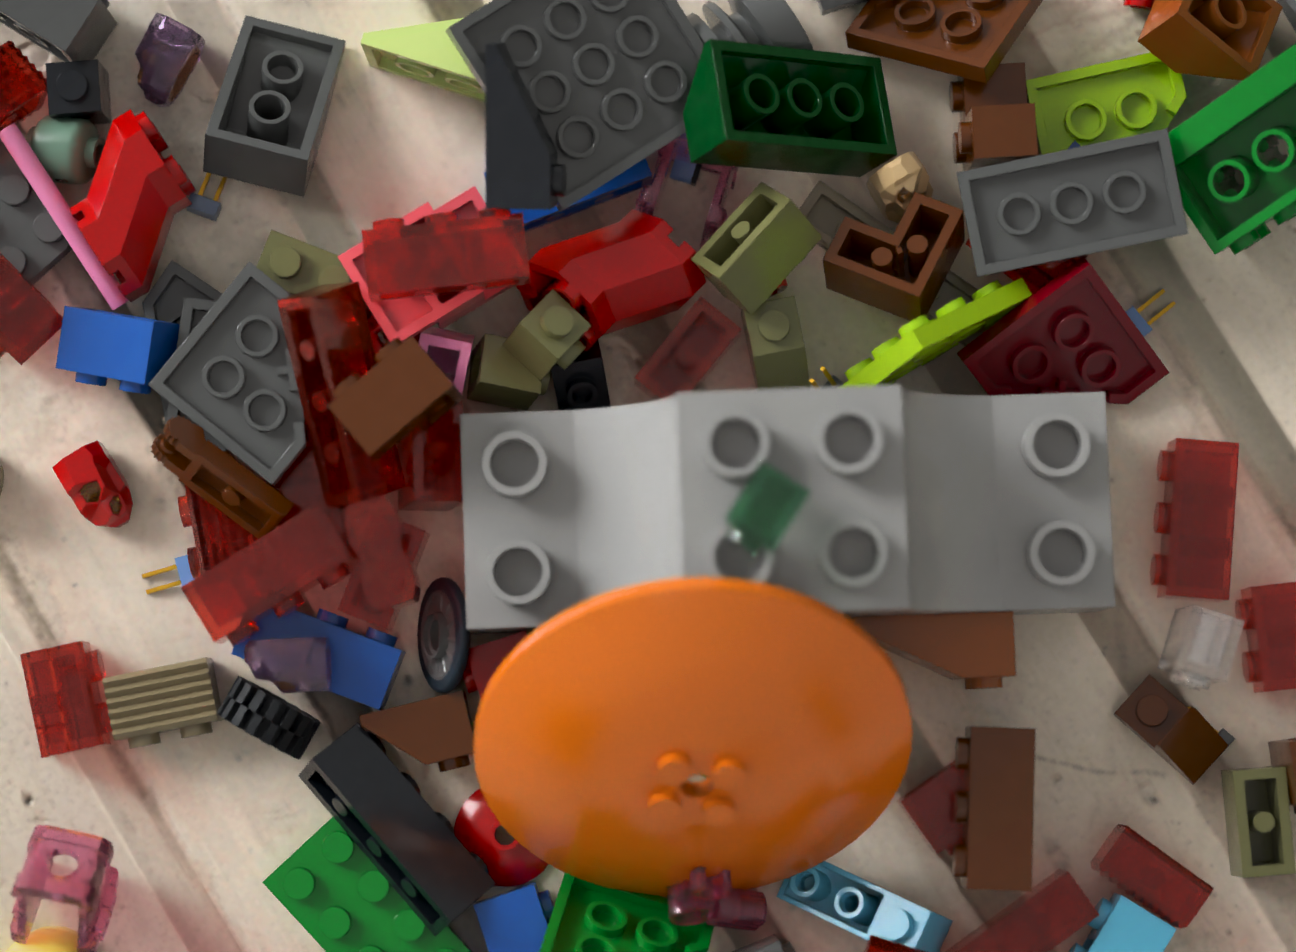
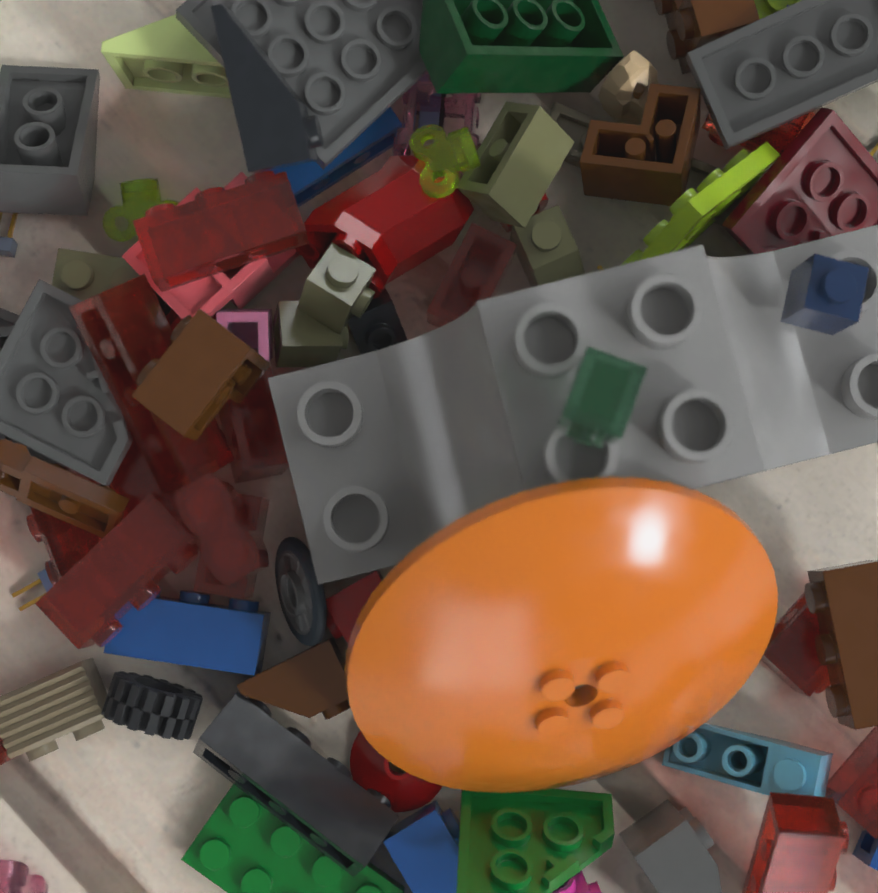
camera: 10 degrees left, 0 degrees up
(292, 663) = (161, 651): clear purple rock -> none
(360, 199) = (137, 198): none -> clear neon green piece
(684, 228) = (443, 157): none -> clear neon green piece
(715, 902) = (610, 788): clear pink bar -> none
(951, 644) = (796, 495): dark orange slope -> none
(1018, 454) = (825, 294): none -> dark blue brick

